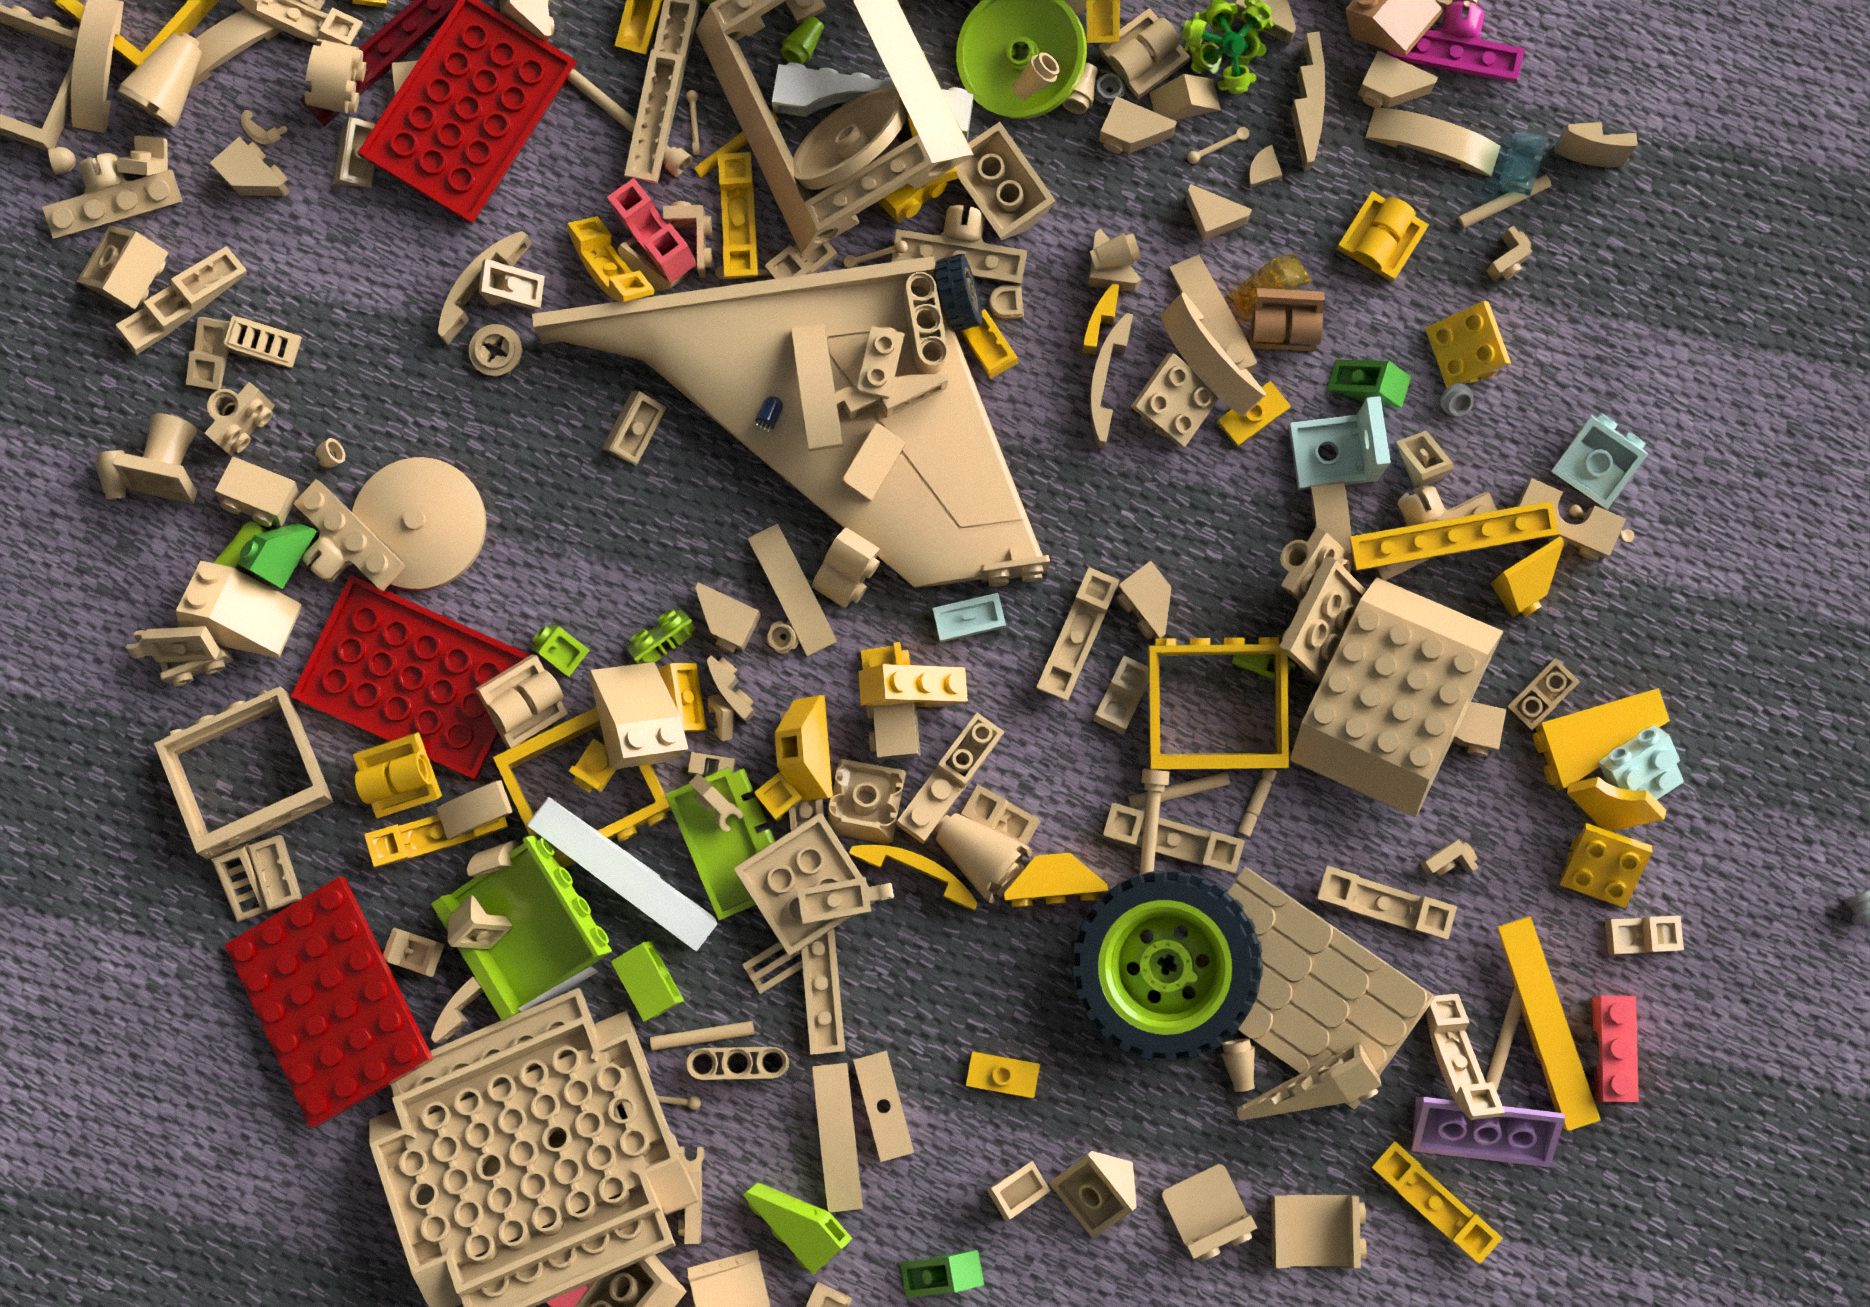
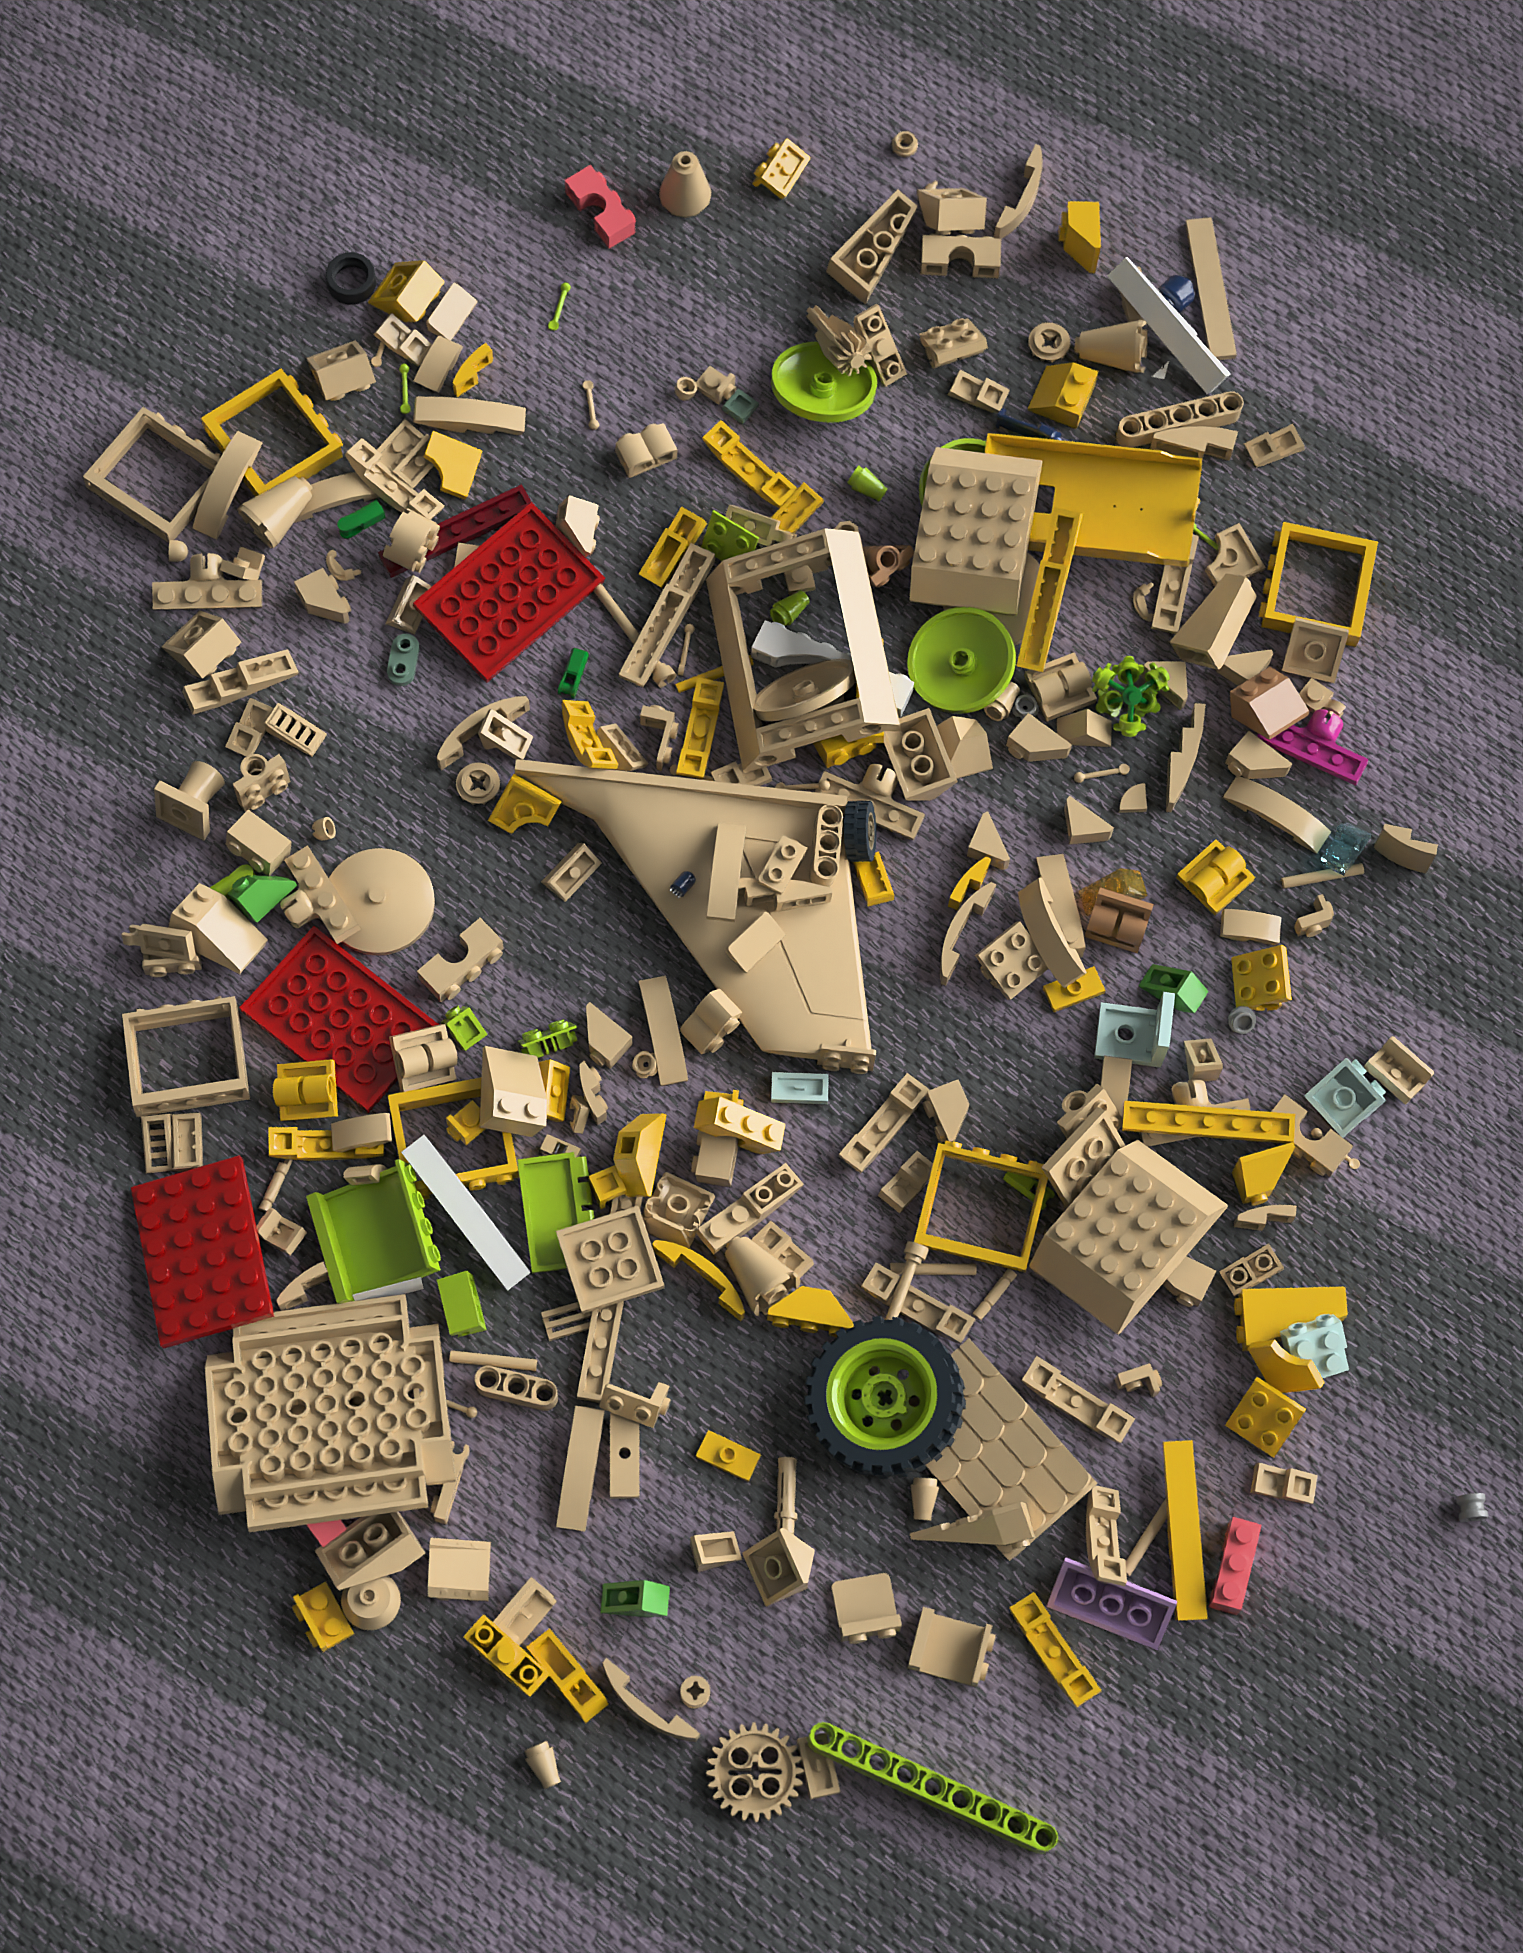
camera: 10 degrees right, 10 degrees down
(110, 479) = (146, 800): tan cone -> none
(268, 65) = (360, 520): none -> green bar
(366, 221) = (403, 658): none -> sand green plate
(392, 896) = (275, 1185): none -> tan wheel
(474, 928) = (337, 1223): tan slope -> none
(522, 596) = (445, 978): none -> tan arch
(555, 363) = (523, 804): none -> yellow tile
(570, 182) = (574, 670): none -> green bar
(651, 232) = (630, 728): coral arch -> none
(710, 798) = (553, 1169): tan plate -> none
(804, 1228) = (536, 1535): lime slope -> none
(840, 899) = (635, 1276): tan plate -> none
(882, 1052) = (635, 1406): none -> tan bracket
(1007, 302) = (898, 851): tan tile -> none
(1037, 74) = (967, 680): tan cone -> none
(1053, 154) = (965, 745): none -> tan slope
(1082, 1107) = (785, 1512): none -> tan pin
(1116, 252) = (994, 832): tan cone -> none
(1438, 284) = (1250, 925): none -> tan slope
(1538, 632) = (1257, 1217): none -> tan slope
(1652, 412) = (1399, 1070): none -> tan bracket

